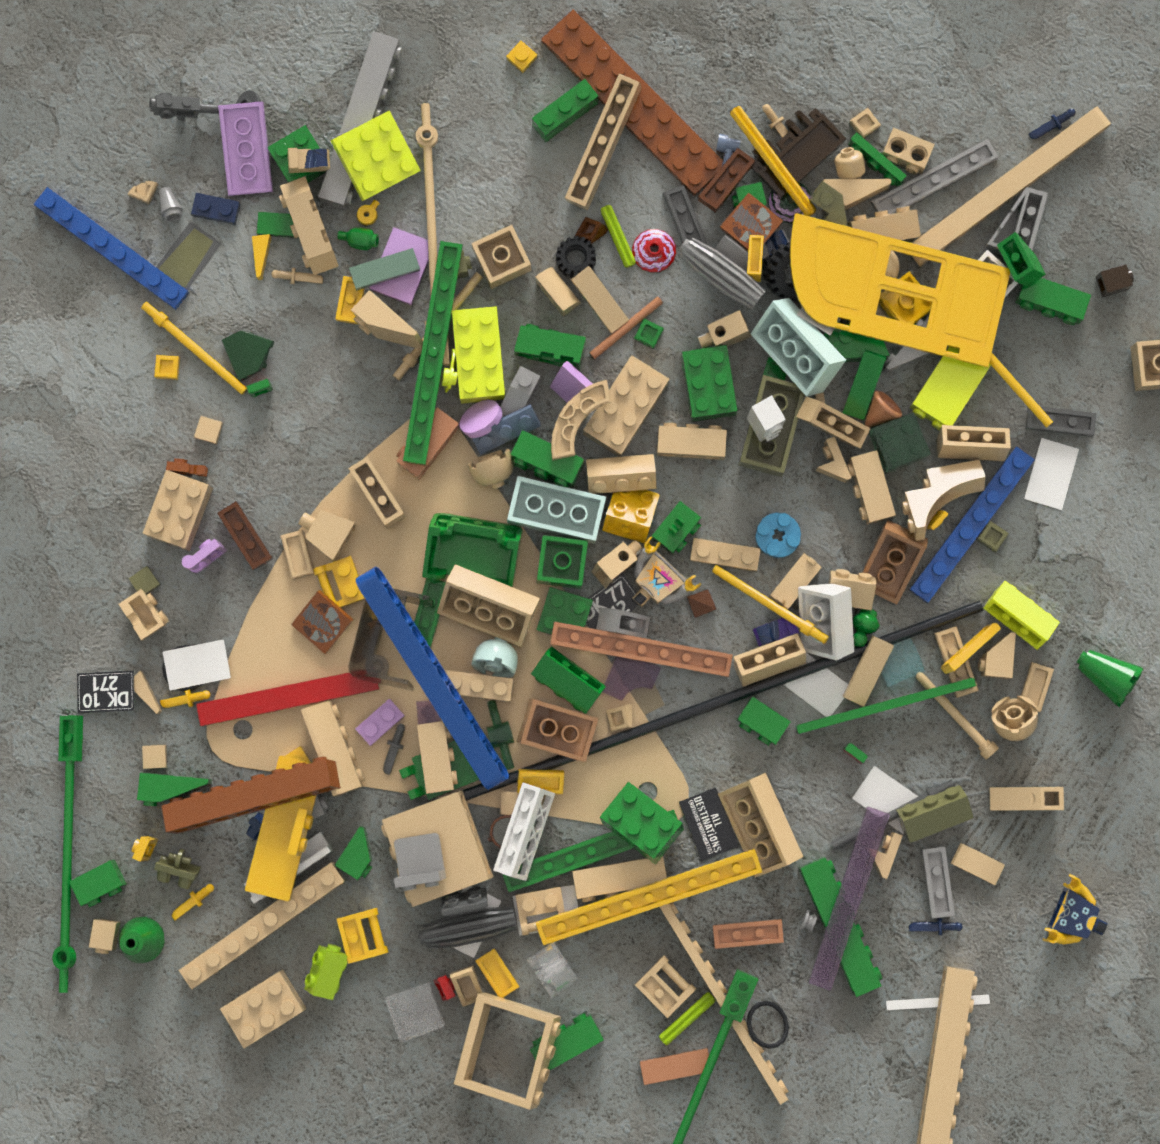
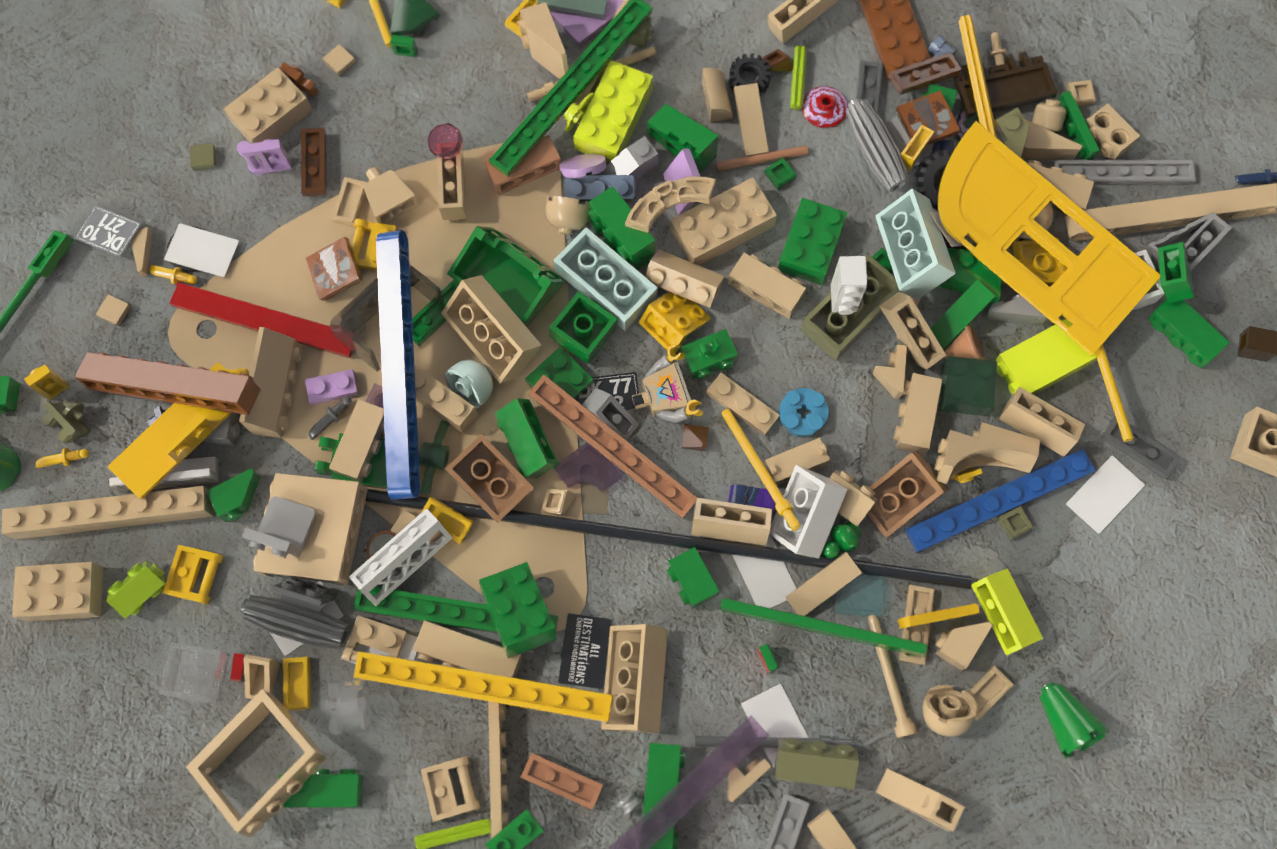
camera: 30 degrees right, 10 degrees down
(143, 614) = (182, 180): tan cylinder -> none
(161, 788) = (97, 337): green slope -> none
(358, 465) = (445, 141): none -> clear pink hair
(501, 256) = (682, 40): tan brick -> none
(611, 567) = (633, 355): tan torso -> none
(735, 329) = (857, 201): tan torso -> none

